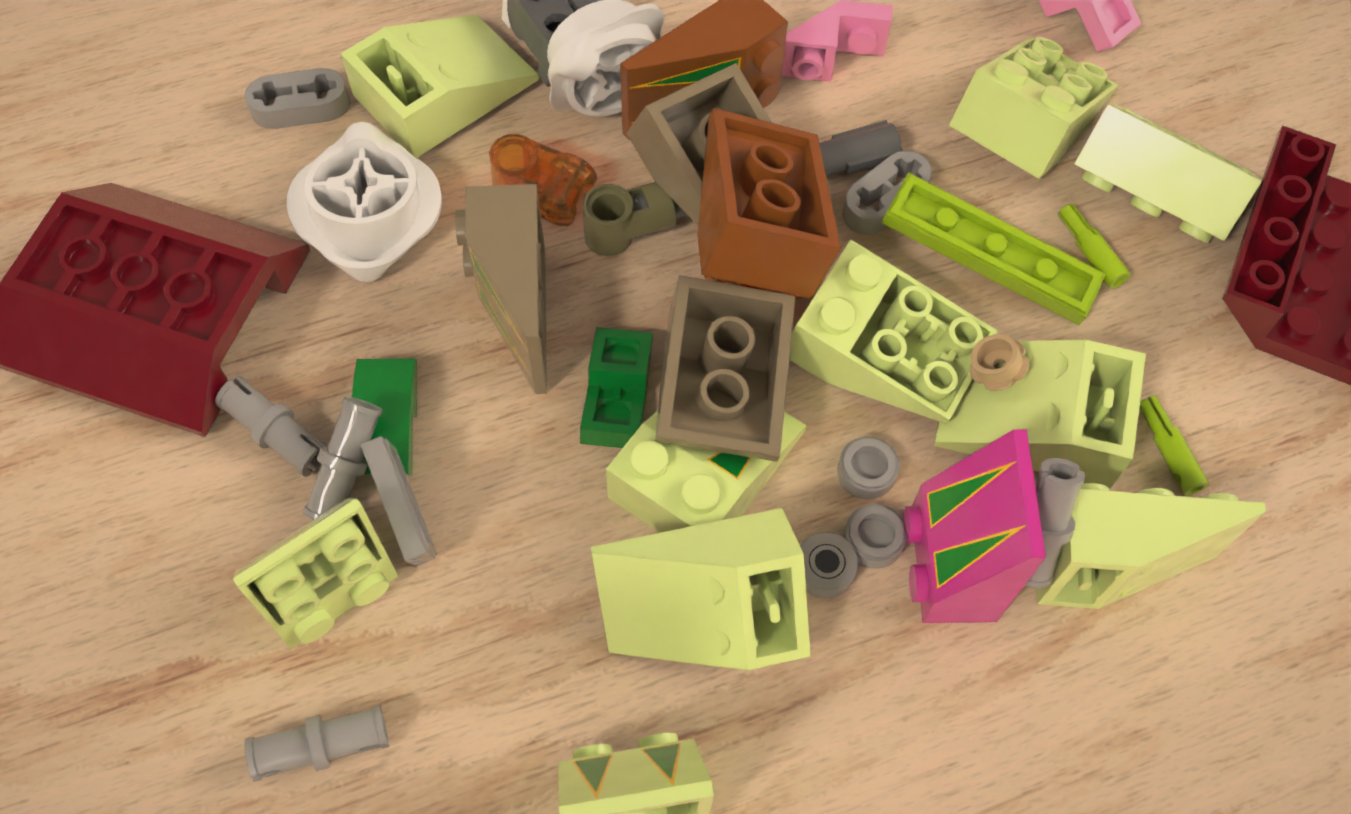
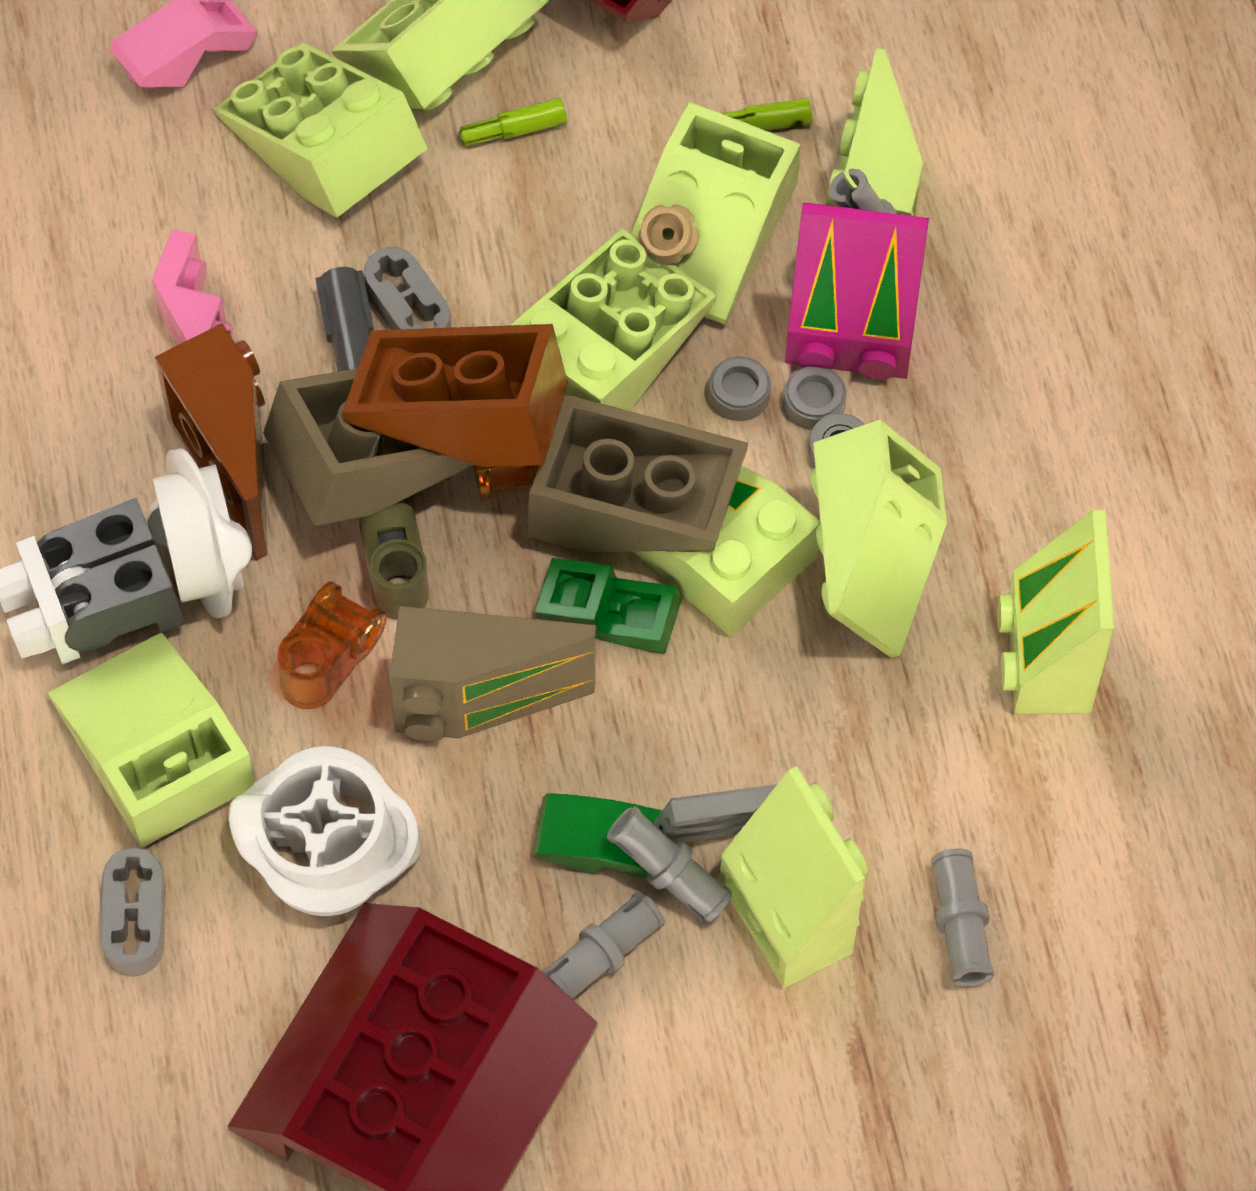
camera: 80 degrees left, 0 degrees up
(994, 249) = (506, 215): lime tile -> none

